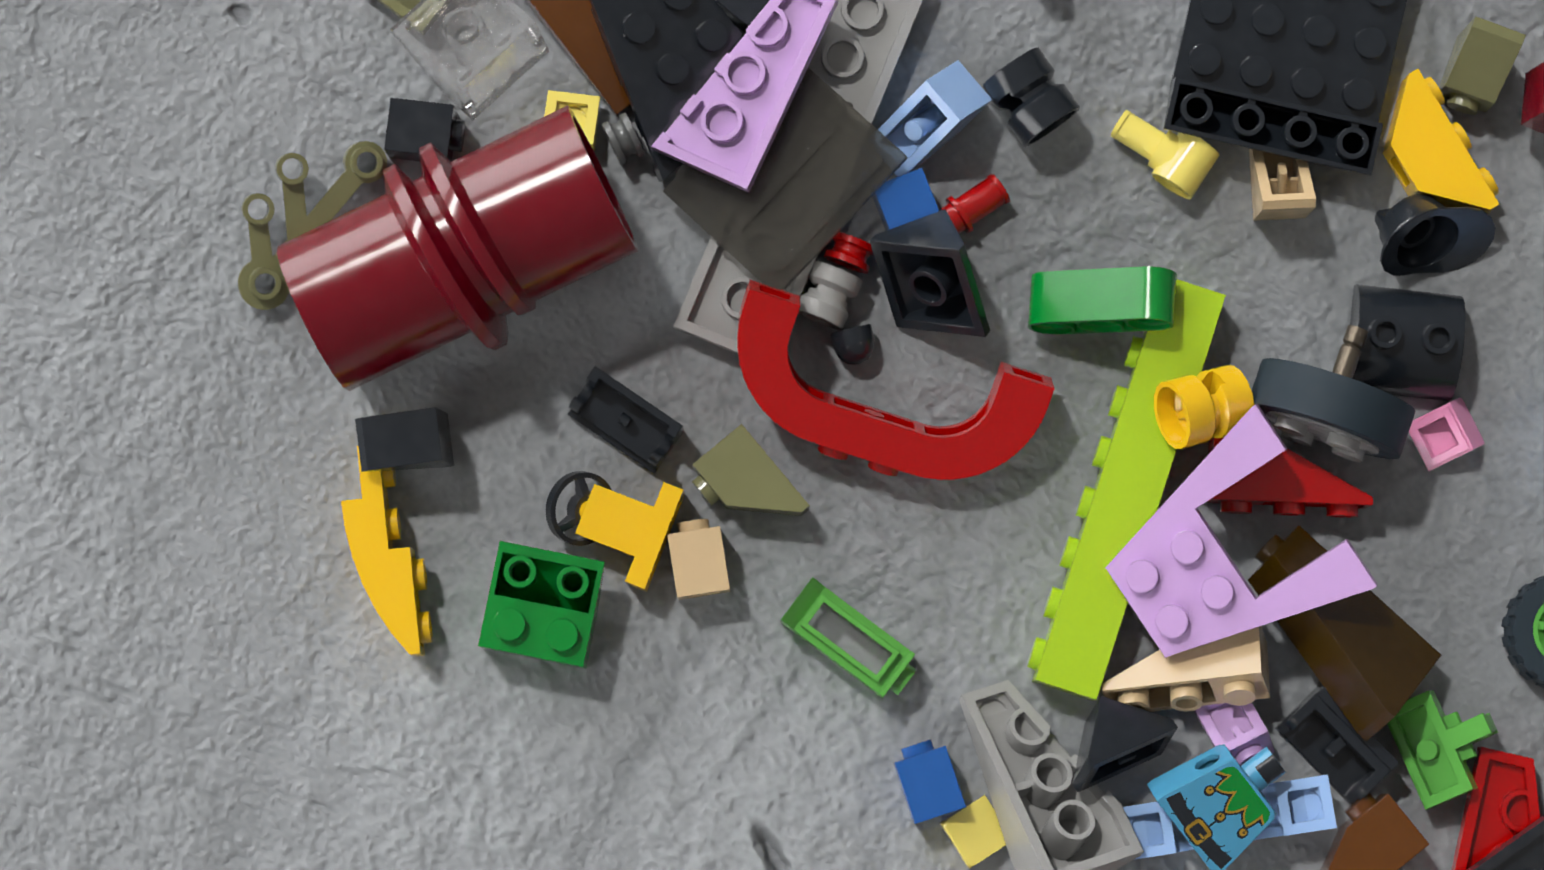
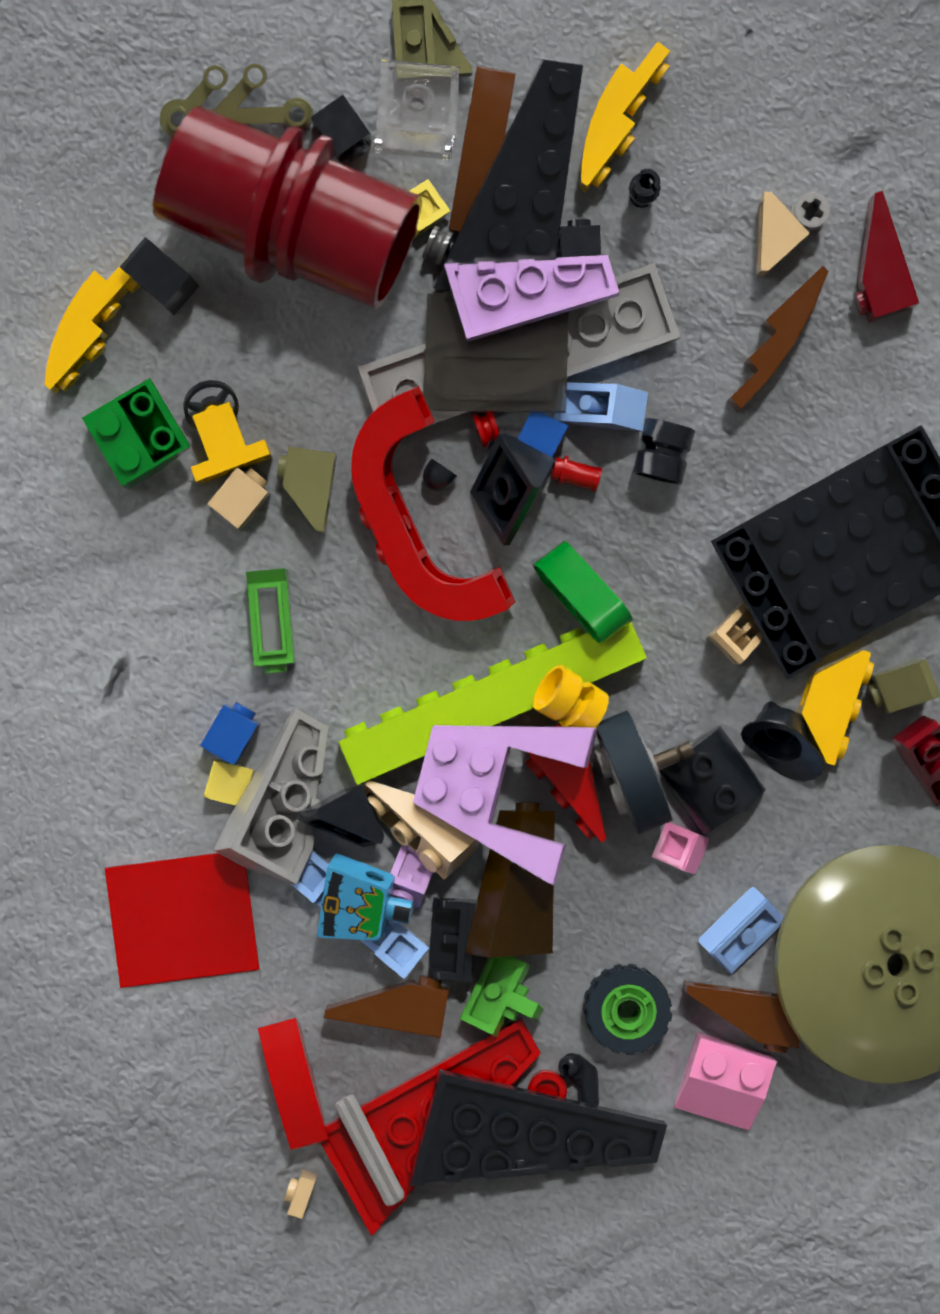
camera: 50 degrees right, 5 degrees up
(625, 420) = (282, 387): black hinge -> none
(827, 299) = (451, 438): light grey wheel -> none
(1177, 160) = (701, 563): light yellow pin -> none

